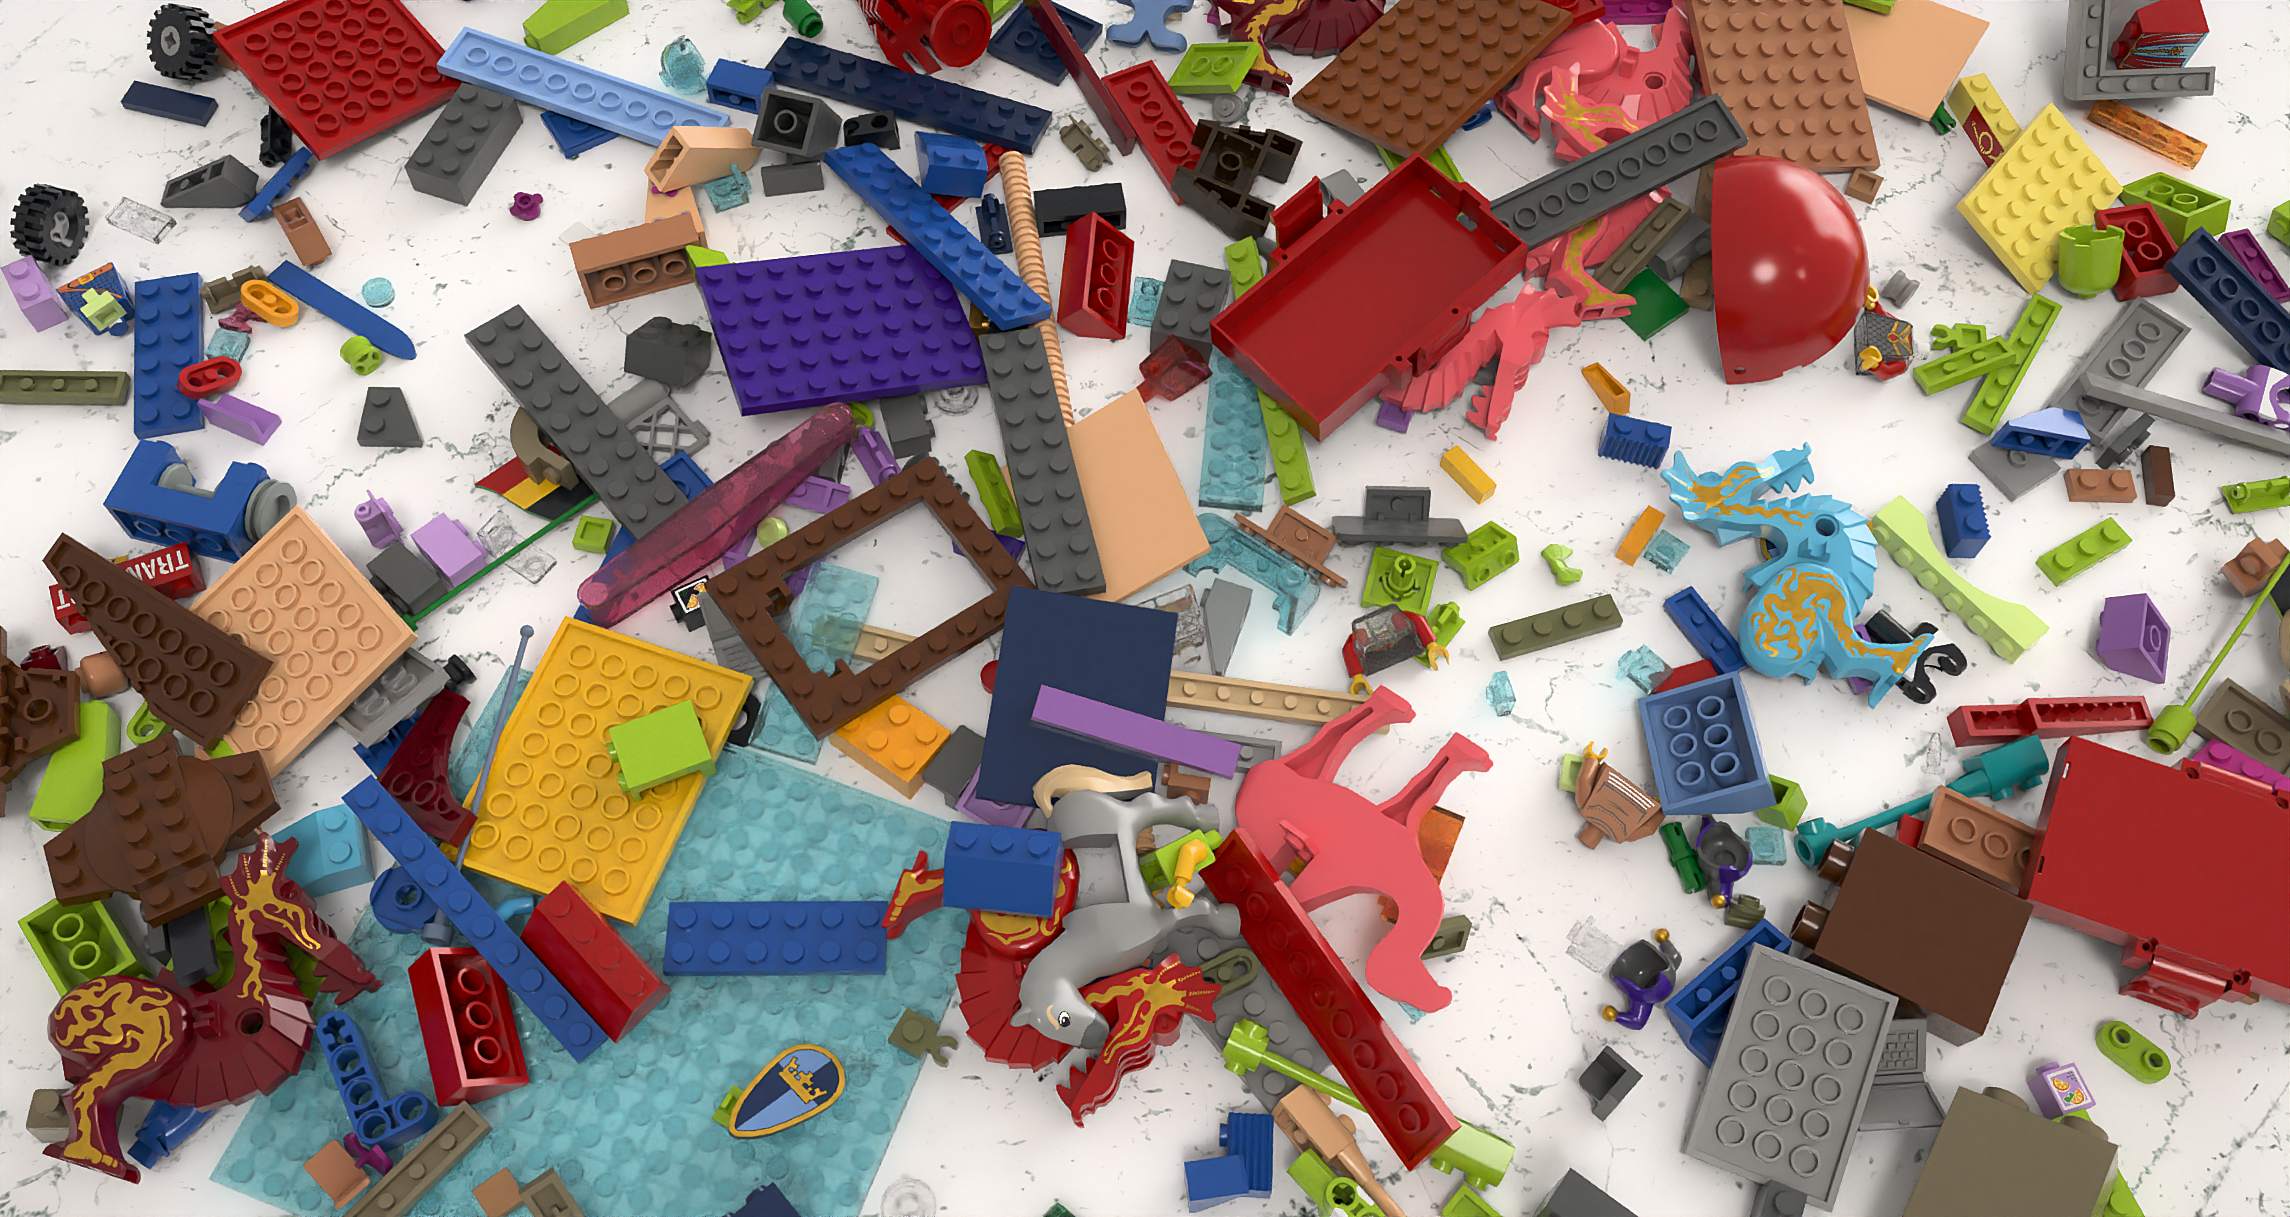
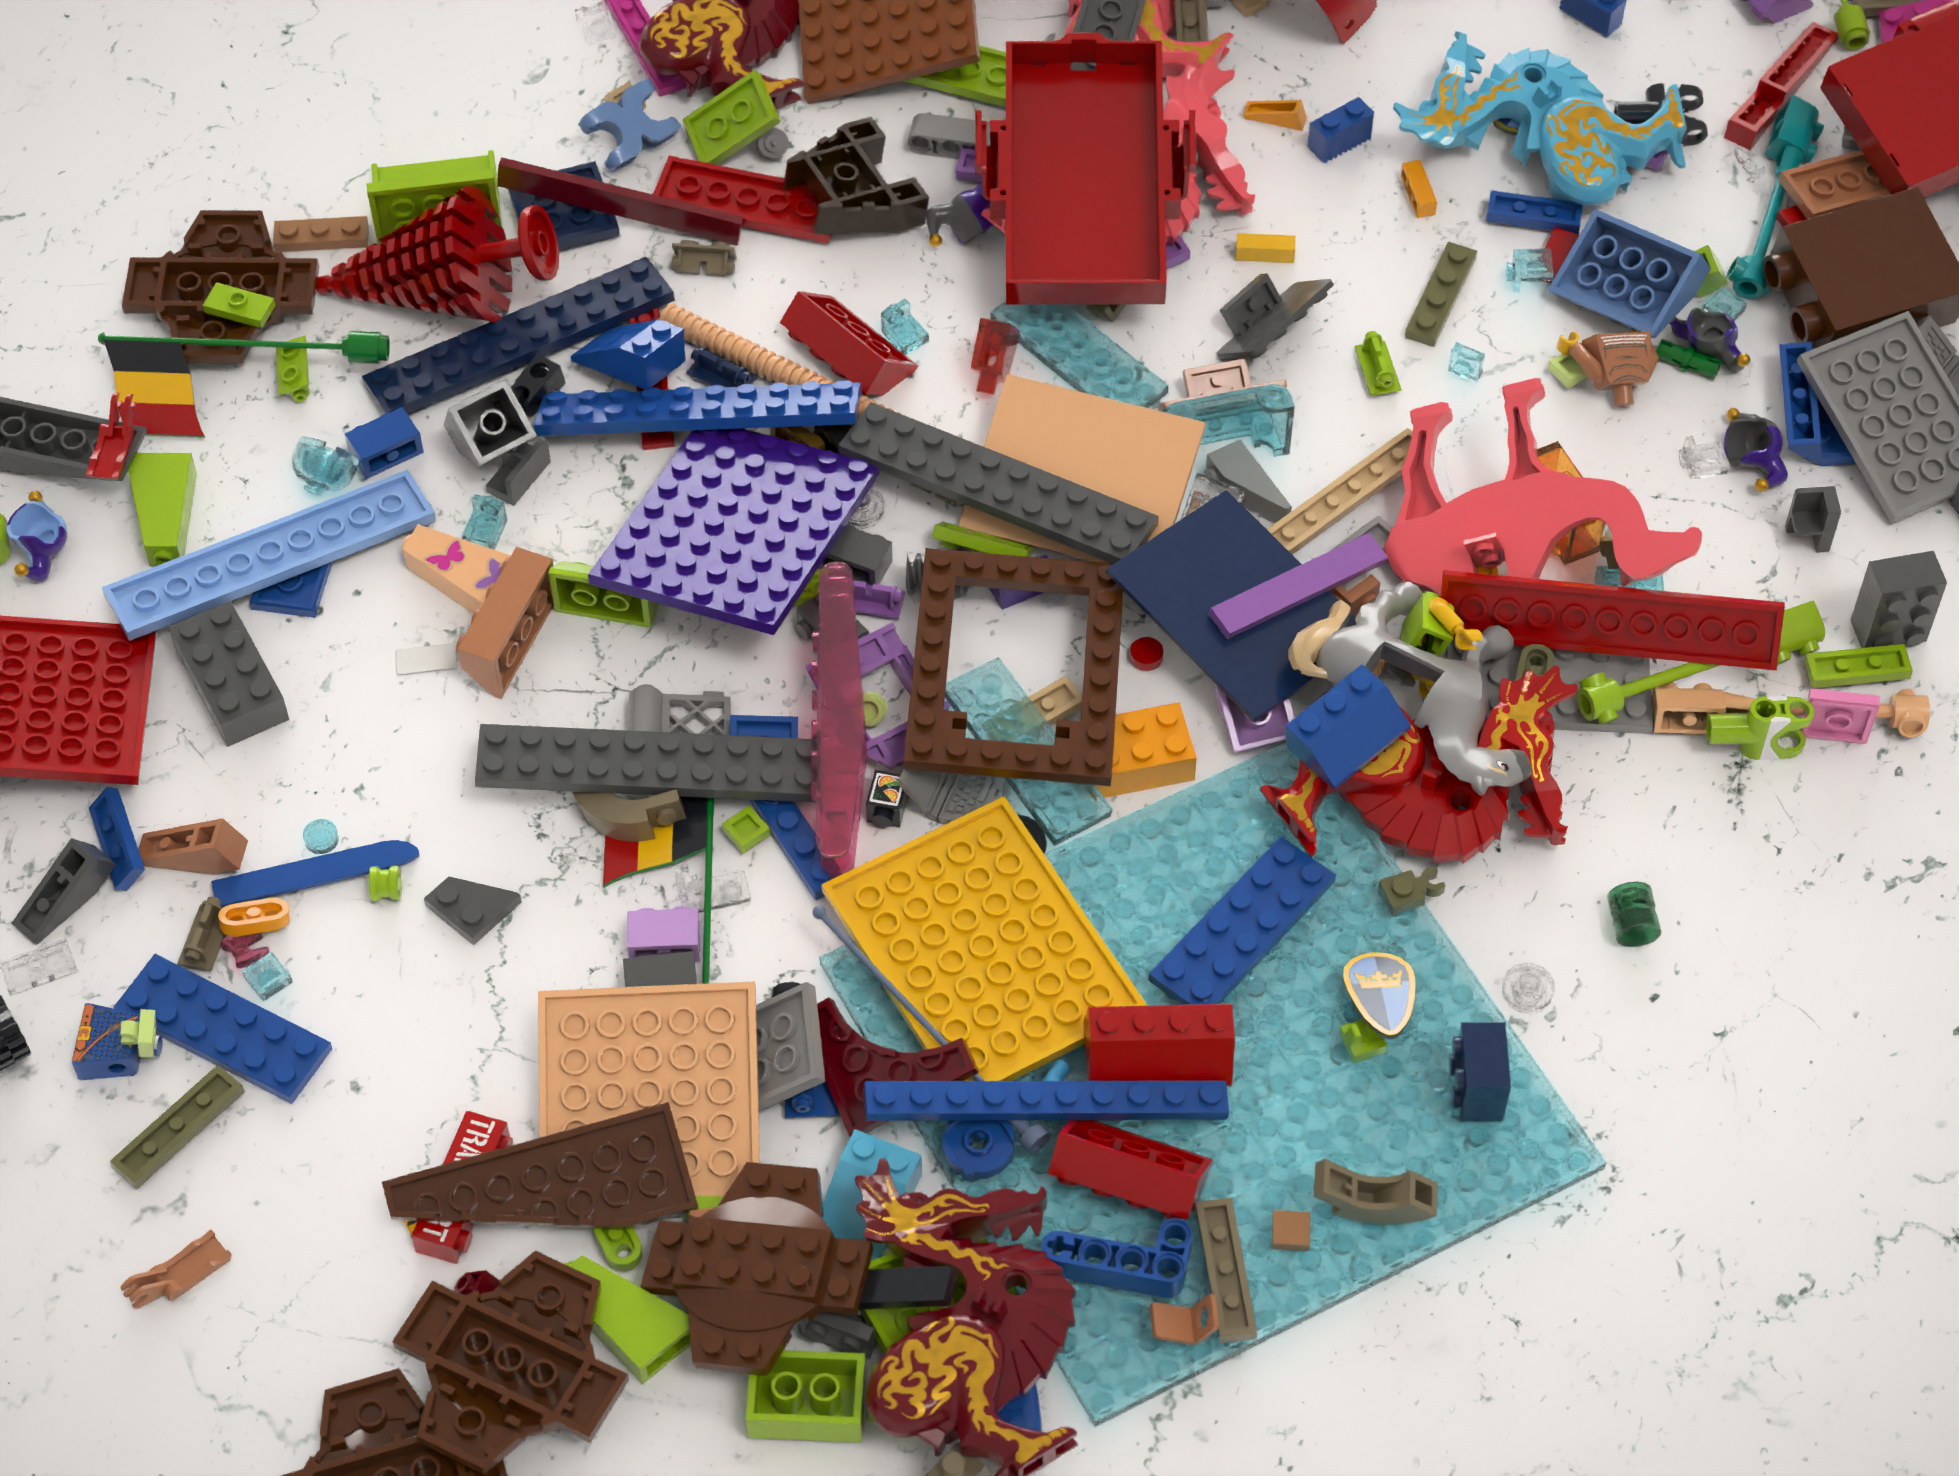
camera: 45 degrees left, 5 degrees down
(34, 293) = (48, 1087): lavender brick -> none
(101, 675) = (538, 1238): nougat head -> none
(161, 506) = (430, 1104): blue piece -> none
(207, 379) = (295, 1004): red plate -> none
(241, 418) = (358, 1010): medium lavender panel -> none
(276, 139) = (67, 818): black hinge -> none
(374, 1157) = (1192, 1292): magenta piece -> none
(378, 521) = (591, 958): lavender hinge -> none
(526, 206) = (345, 680): magenta plate -> none
(659, 748) = (1021, 887): lime panel -> none
(667, 351) = (626, 660): dark grey brick -> none
(700, 155) = (451, 510): light nougat slope -> none
(955, 764) = (1207, 721): dark grey panel -> none
(1063, 206) = (766, 303): black brick -> none
(1188, 303) = (944, 303): dark grey brick -> none
(1214, 1181) = (1679, 789): blue slope -> none
(1253, 1138) = (1673, 761): blue brick -> none
(1282, 430) = (1111, 319): lime plate -> none
(1385, 639) = (1362, 391): clear torso -> none
(1402, 574) = (1312, 347): lime plate -> none
(1484, 556) = (1348, 287): lime bracket -> none
(1556, 555) = (1385, 248): lime piece -> none
(1655, 305) = (1243, 25): green tile -> none
(1666, 551) = (1447, 183): clear light blue plate -> none
(1744, 912) = (1761, 356): olive plate -> none
(2004, 625) = (1691, 48): yellowish green arch -> none

